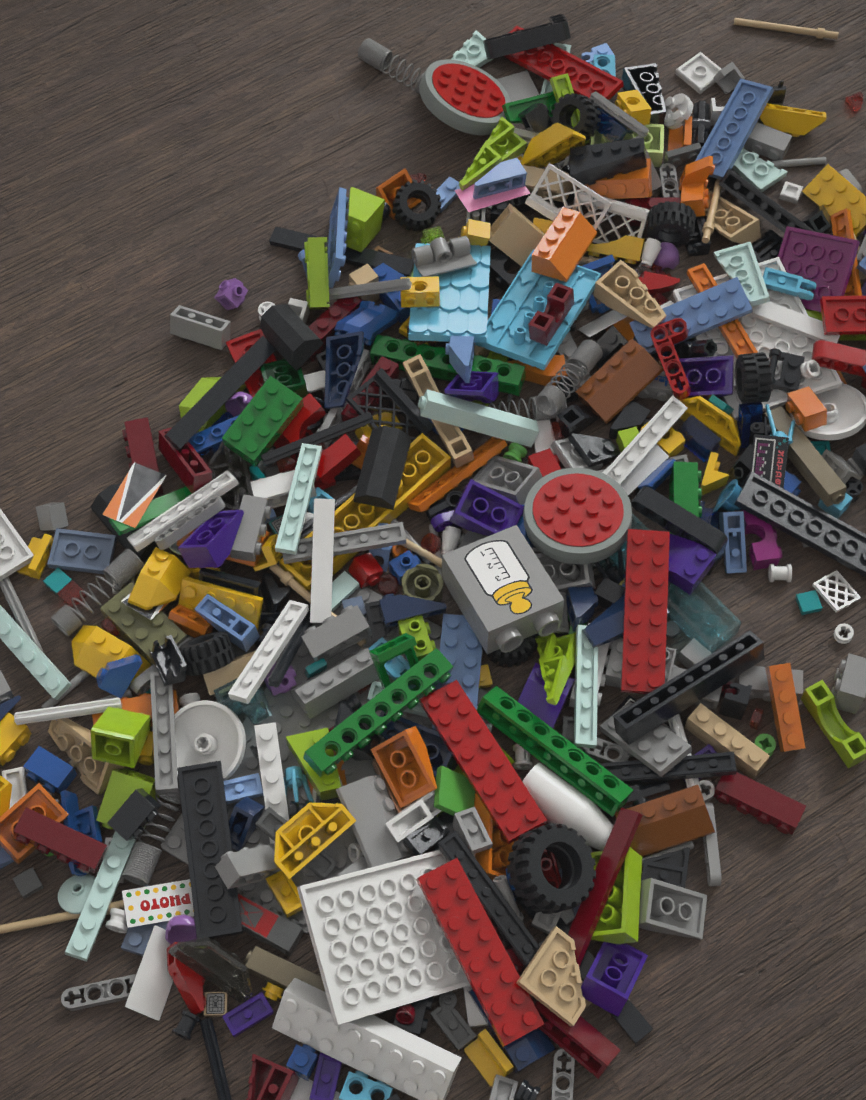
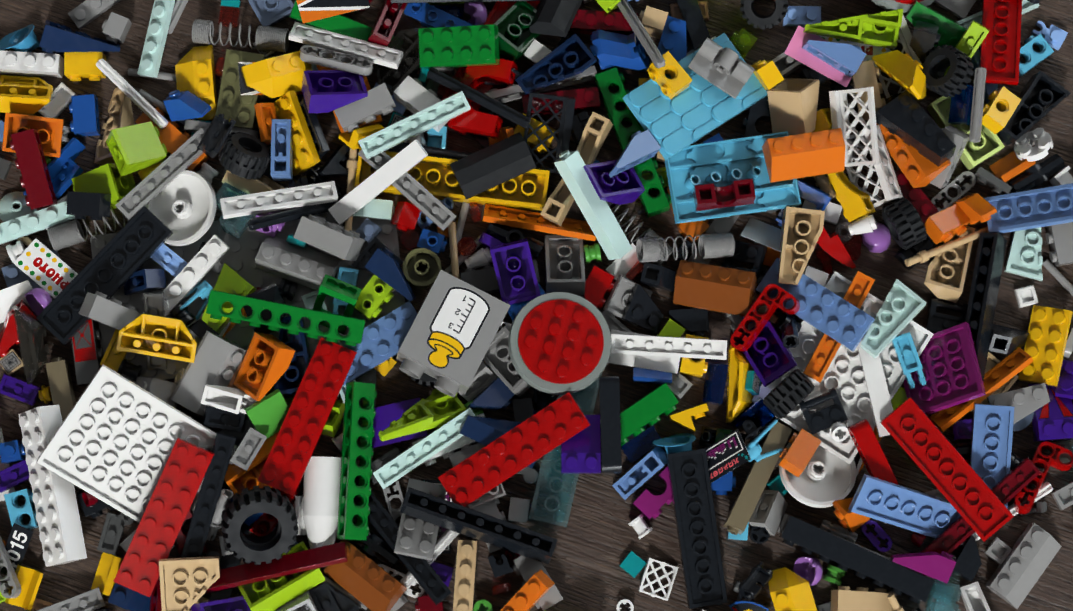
camera: 50 degrees right, 20 degrees up
(408, 518) = (475, 212): none -> clear red tile

